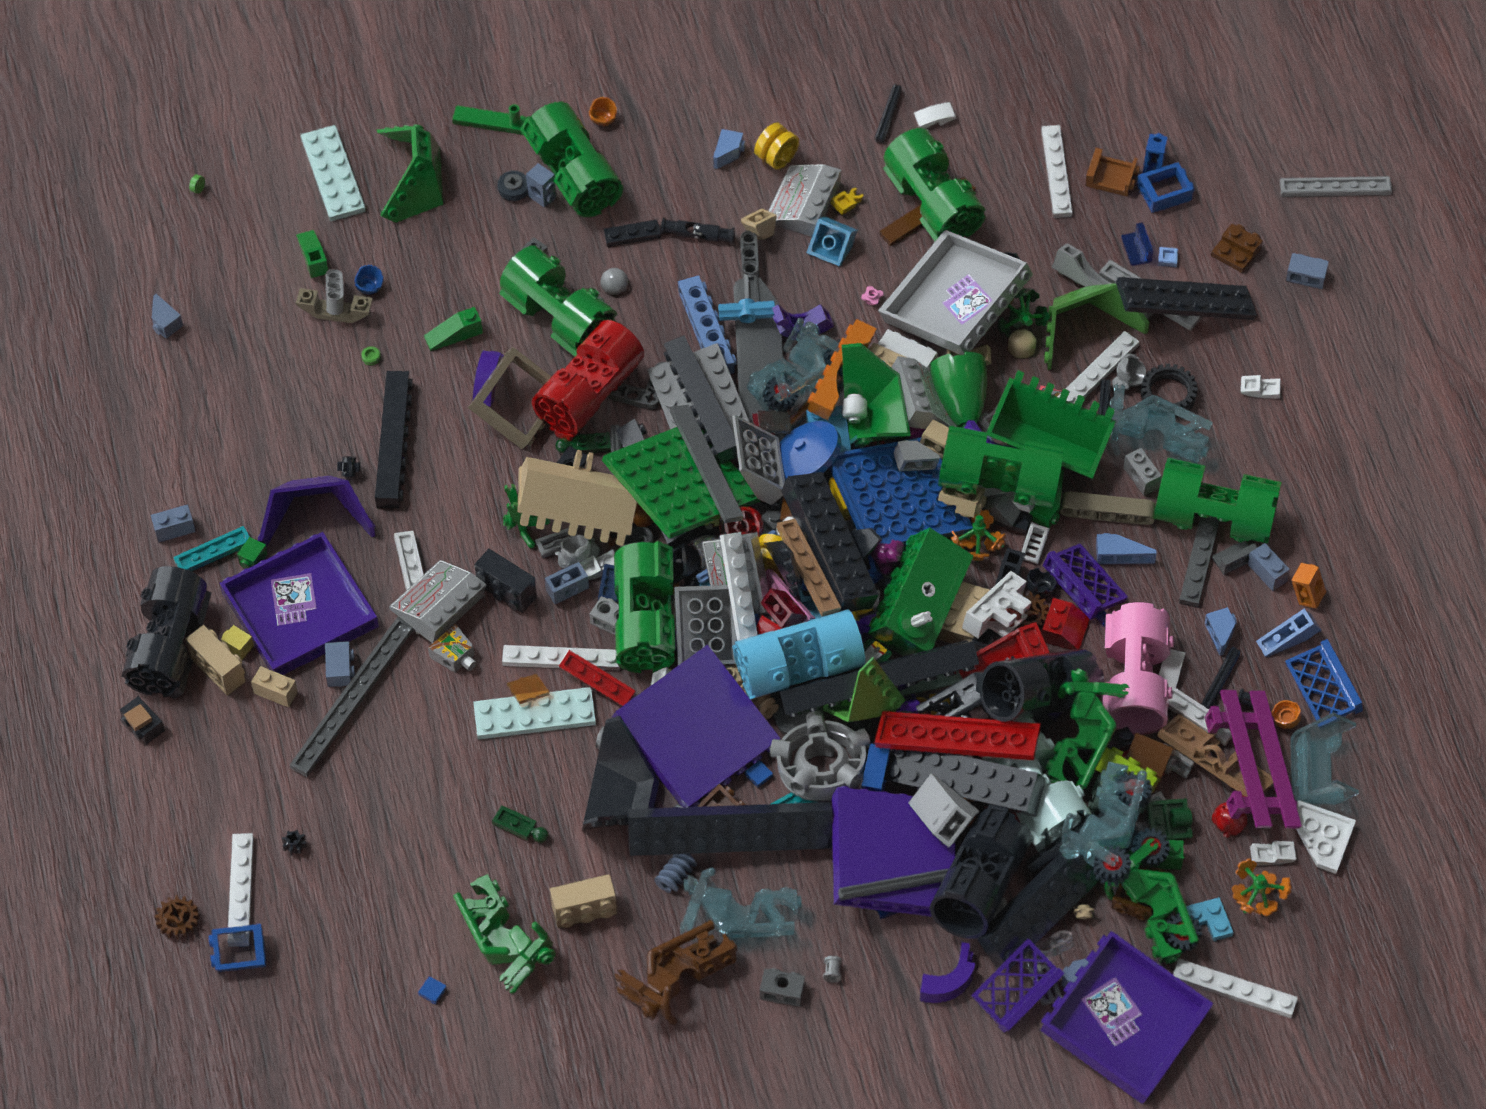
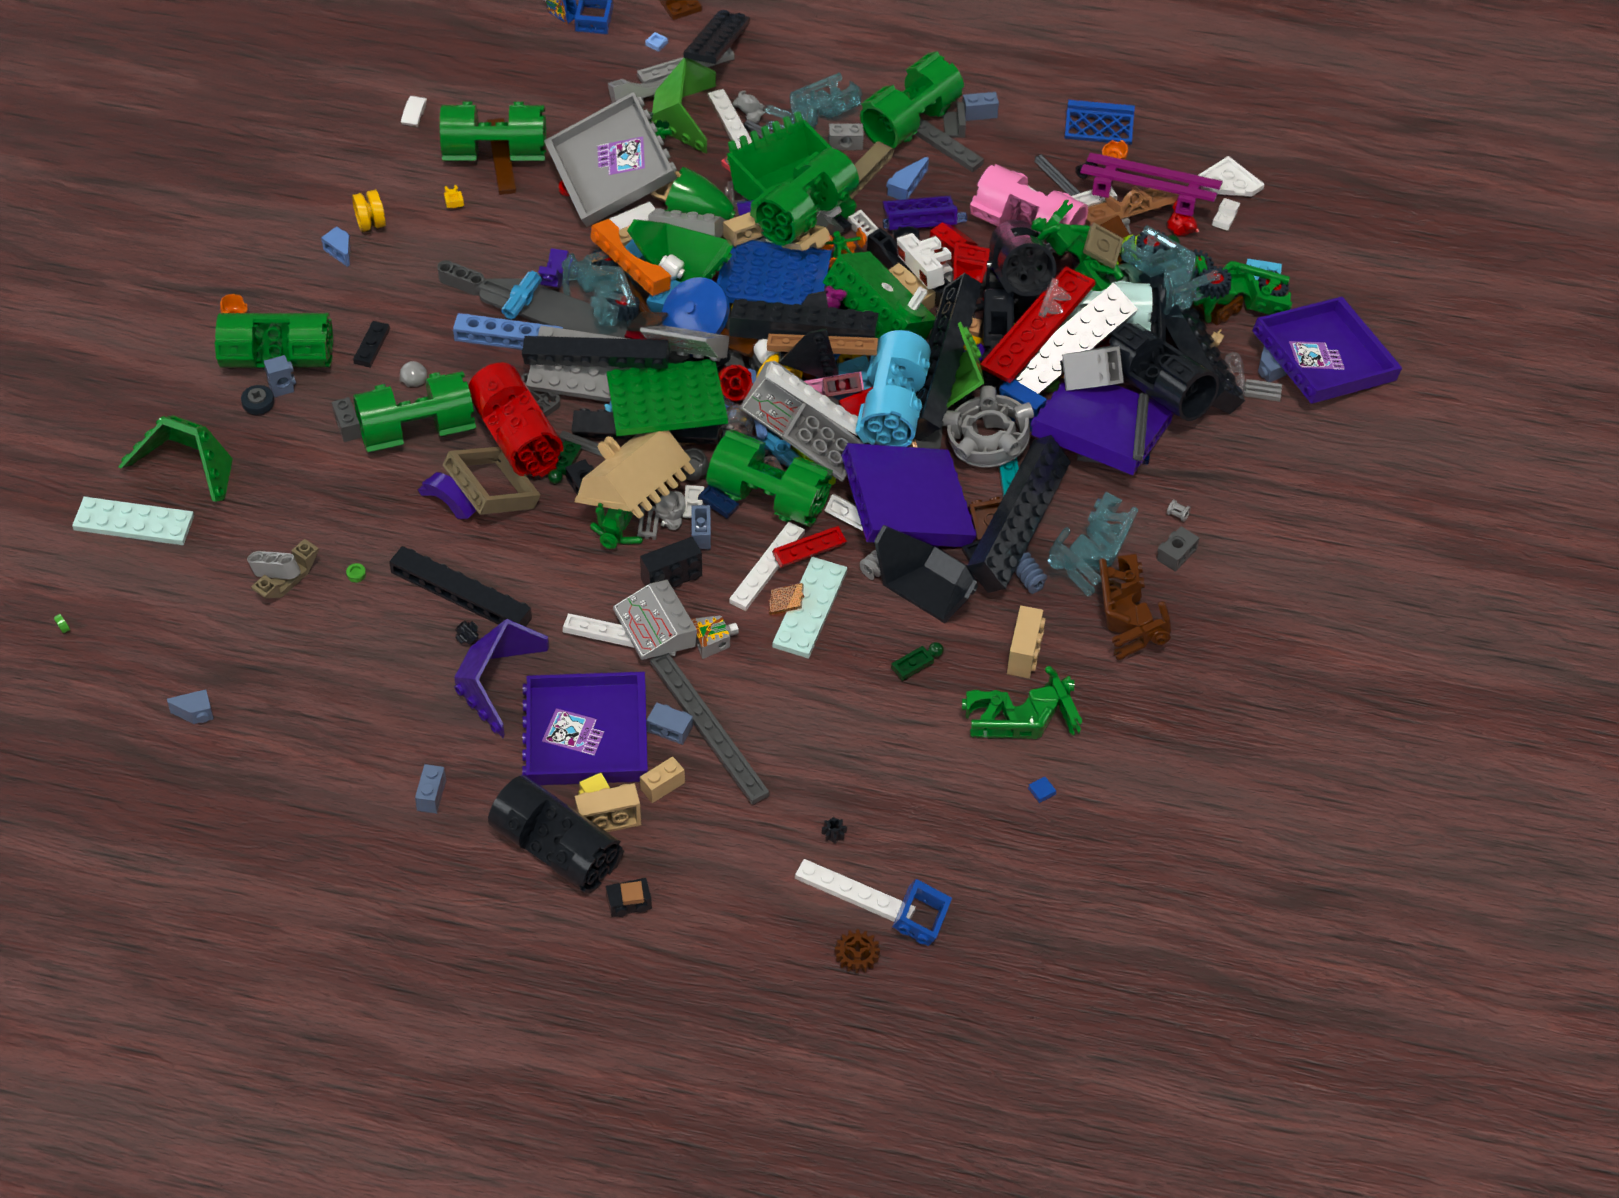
camera: 65 degrees left, 5 degrees down
(212, 550) = (480, 771): teal plate -> none
(252, 553) = (507, 741): green brick -> none
(312, 253) = (215, 566): green slope -> none
(368, 279) = (277, 537): blue hair -> none
(455, 329) = (378, 500): green slope -> none
(490, 119) = (172, 387): green piece -> none
(605, 621) = (753, 513): light grey brick -> none
(706, 231) = (413, 294): black piece -> none
(706, 463) = (664, 373): dark grey tile -> none
(758, 774) = (968, 482): blue tile -> none
(761, 223) = (437, 252): tan slope -> none
(805, 196) = (429, 220): light grey slope -> none
(831, 241) = (486, 221): dark azure slope -> none
(872, 300) = (558, 221): bright pink plate -> none
(888, 113) = (387, 137): black axle -> none
(915, 456) = (748, 248): light grey slope -> none
(947, 987) = (1233, 437): dark purple arch -> none
(992, 726) = (1056, 293): none -> clear tile
(1022, 343) = (676, 152): tan hair -> none
(1030, 998) = (1273, 396): dark purple fence -> none
(1056, 171) = (526, 67): white plate -> none
(1097, 746) = (1103, 245): none -> dark tan tile
(1111, 174) = (555, 37): dark orange panel -> none
(1138, 246) = (634, 51): clear blue panel -> none
(1171, 373) = (771, 80): black tyre -> none
(1221, 628) = (1017, 156): medium blue slope -> none
(1235, 988) = (1332, 282): white plate -> none
(1259, 388) = (814, 44): white slope -> none
(1262, 884) = (1251, 228): orange plant -> none
(1289, 633) = (1045, 120): medium blue slope -> none
(1308, 585) = (1015, 88): orange brick -> none
(1312, 761) = (1148, 151): clear light blue windscreen -> none

